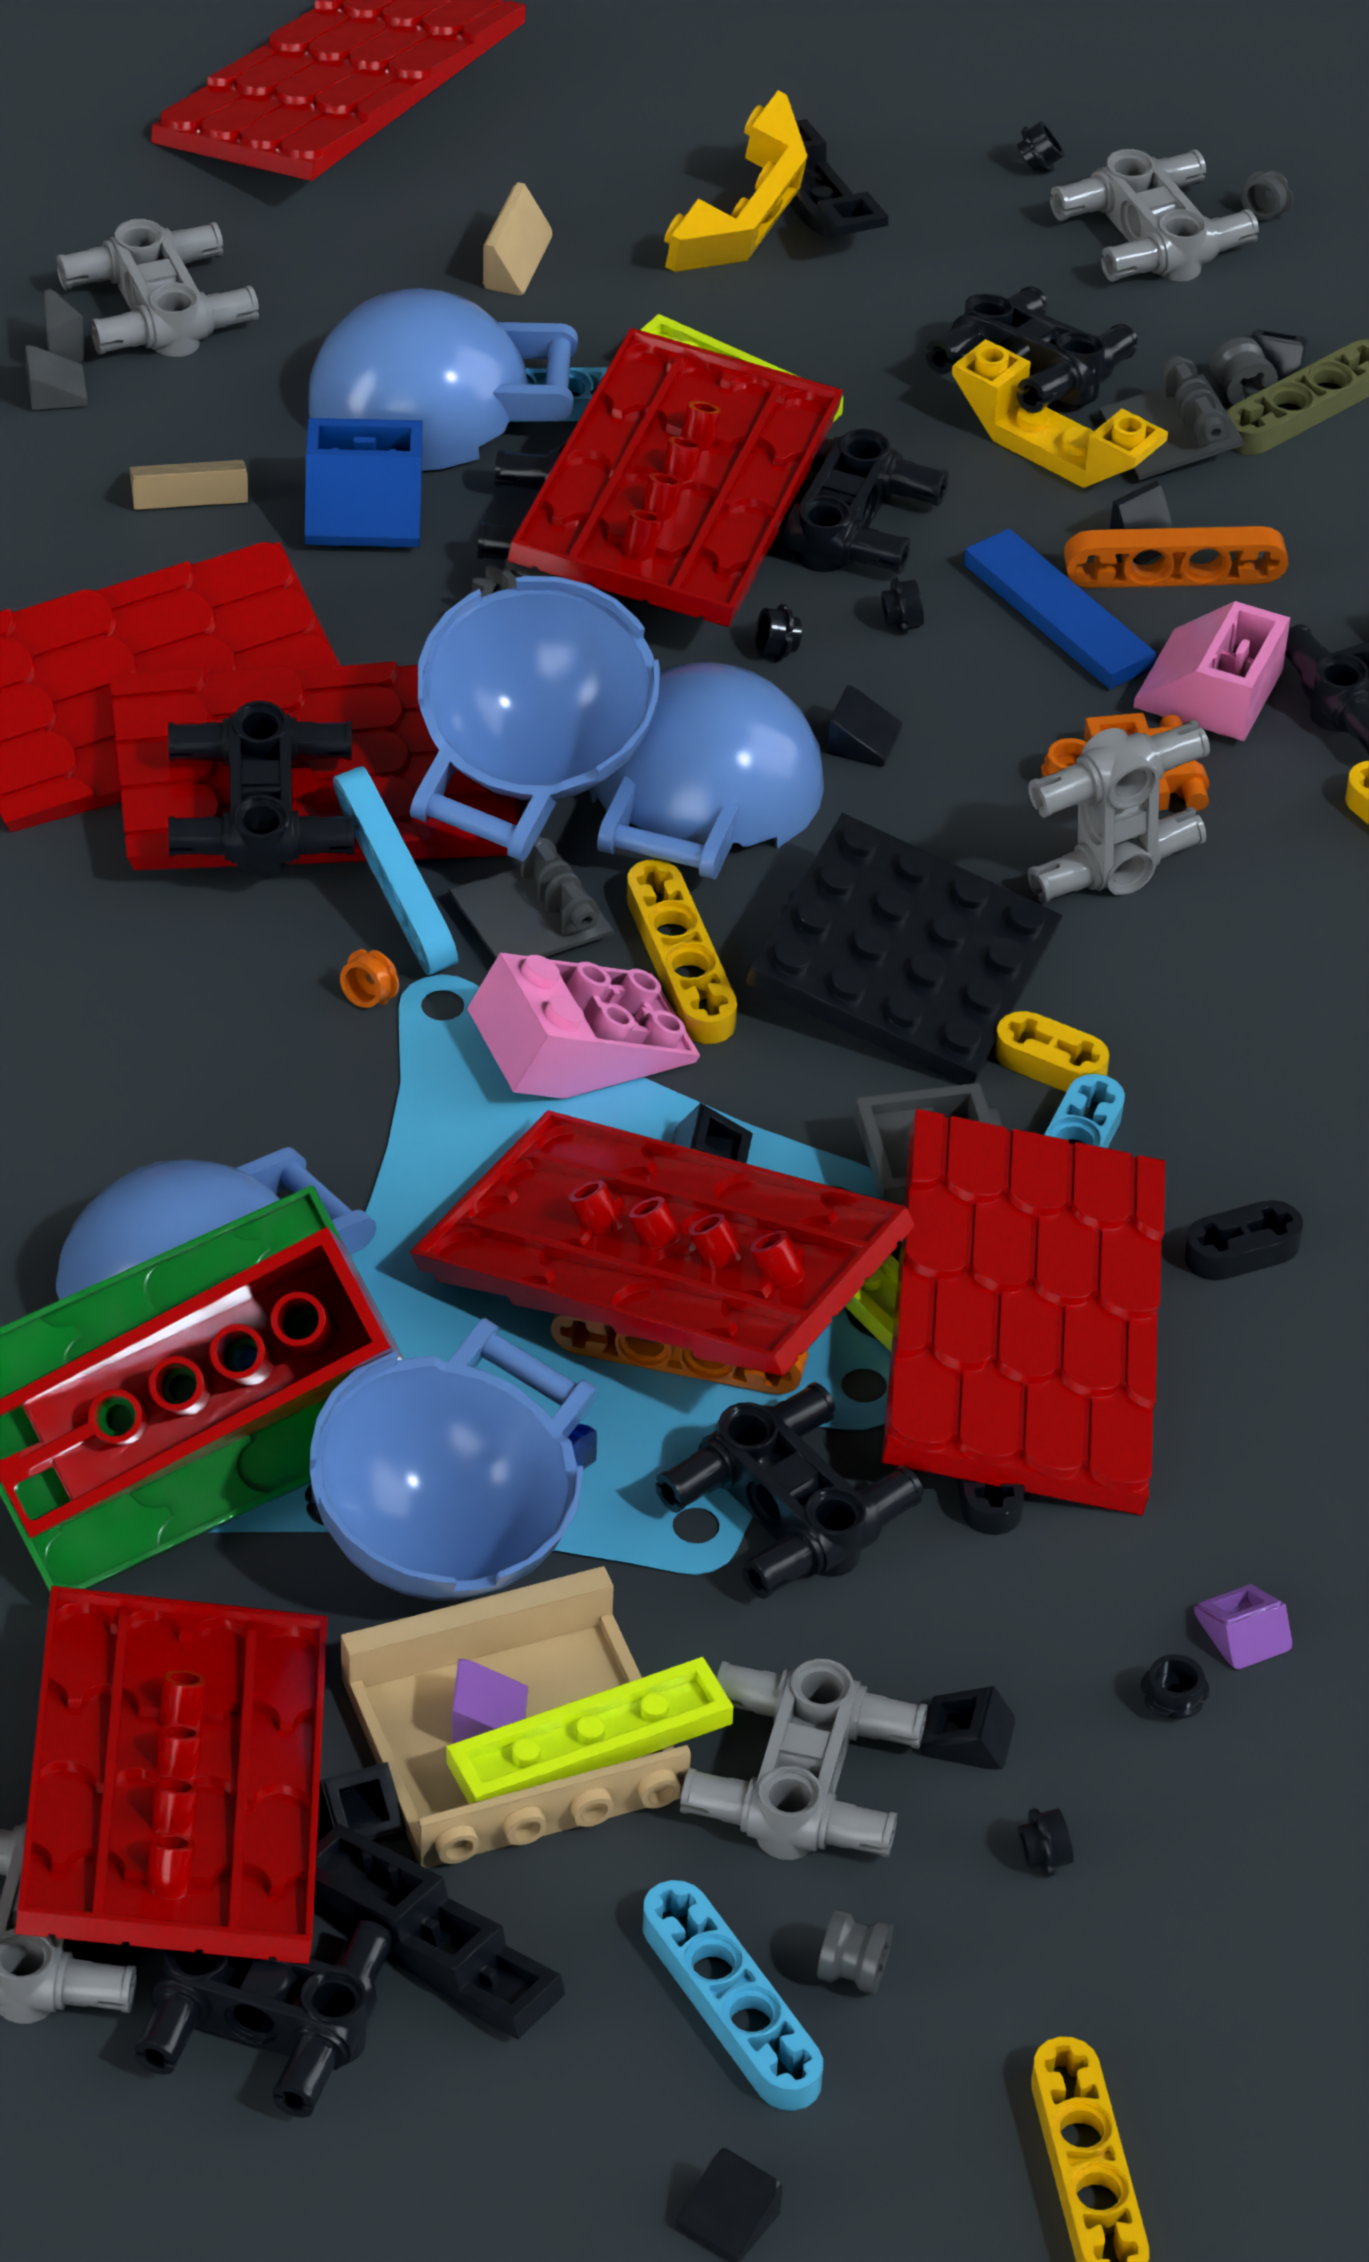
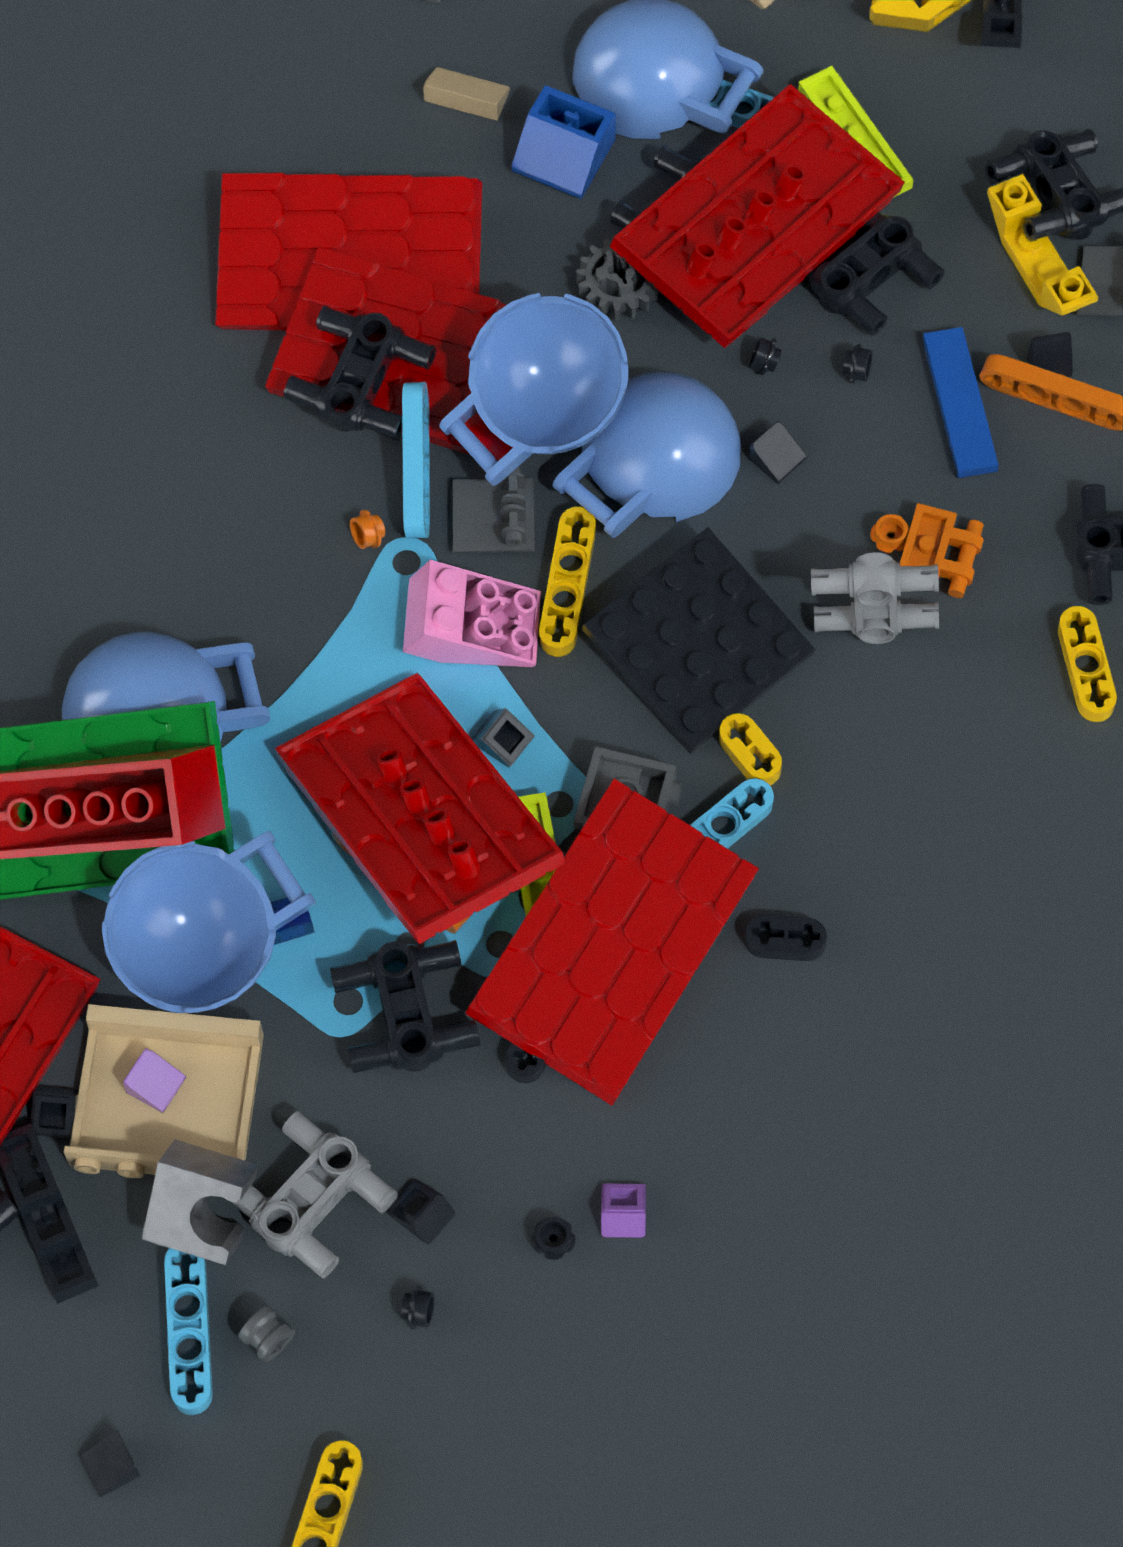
camera: 30 degrees right, 20 degrees up
(592, 1732) = (210, 1127): neon yellow plate -> none
(629, 1803) = (178, 1203): none -> flat silver piece
(1218, 669) = (1024, 498): bright pink slope -> none

